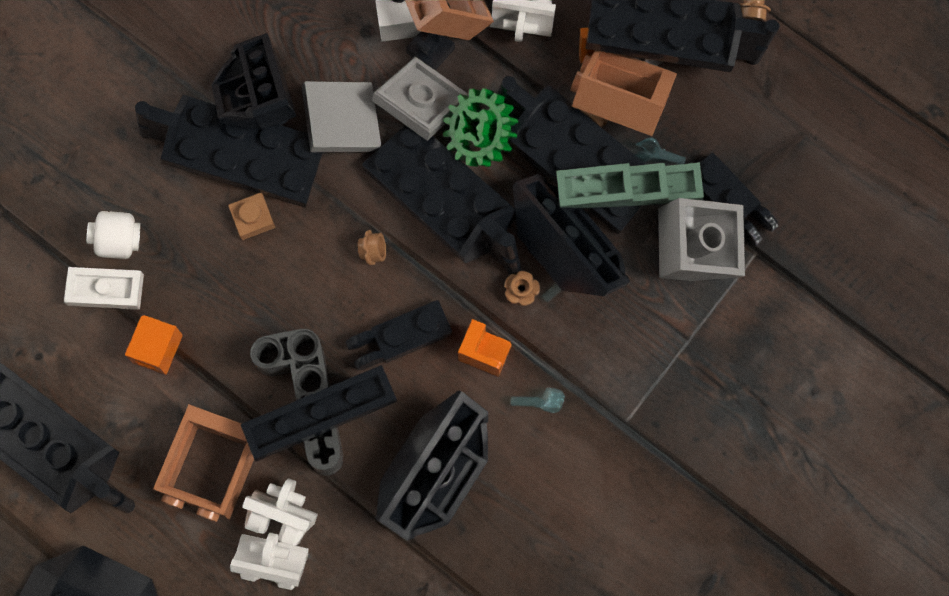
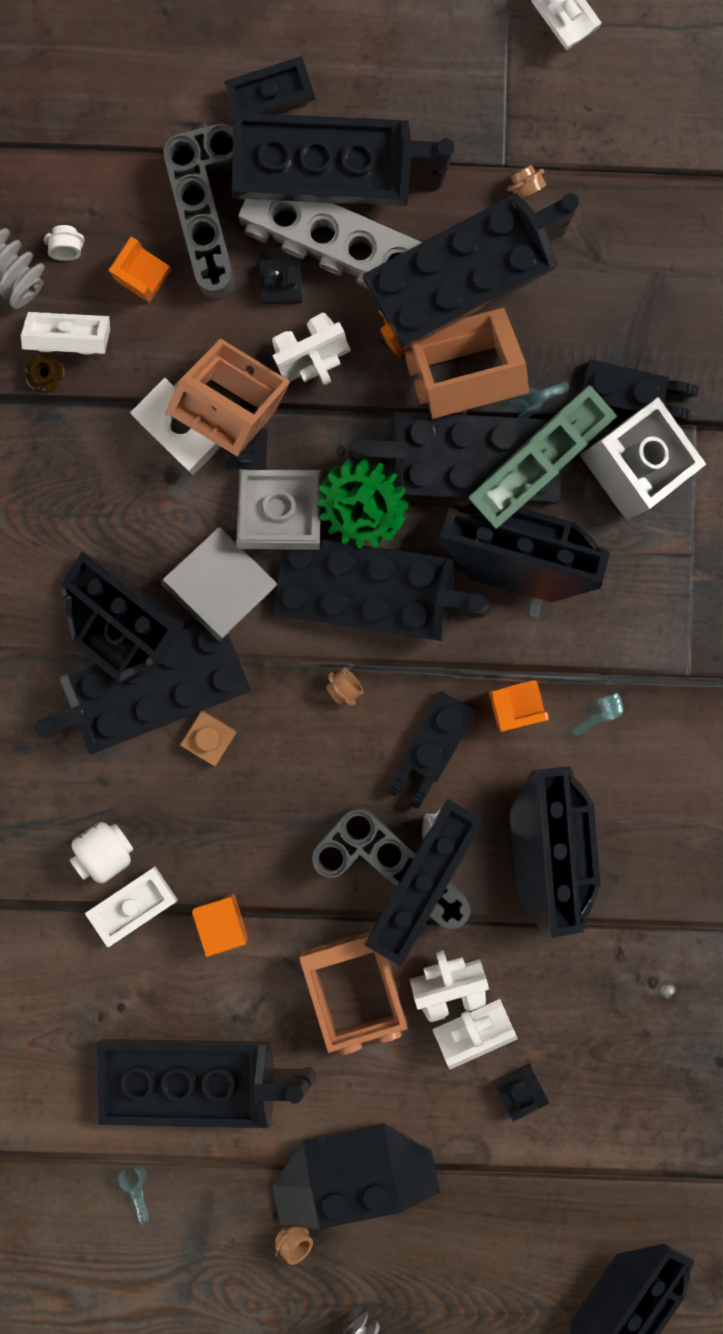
camera: 35 degrees left, 15 degrees up
(524, 297) = (497, 623): medium nougat plate -> none

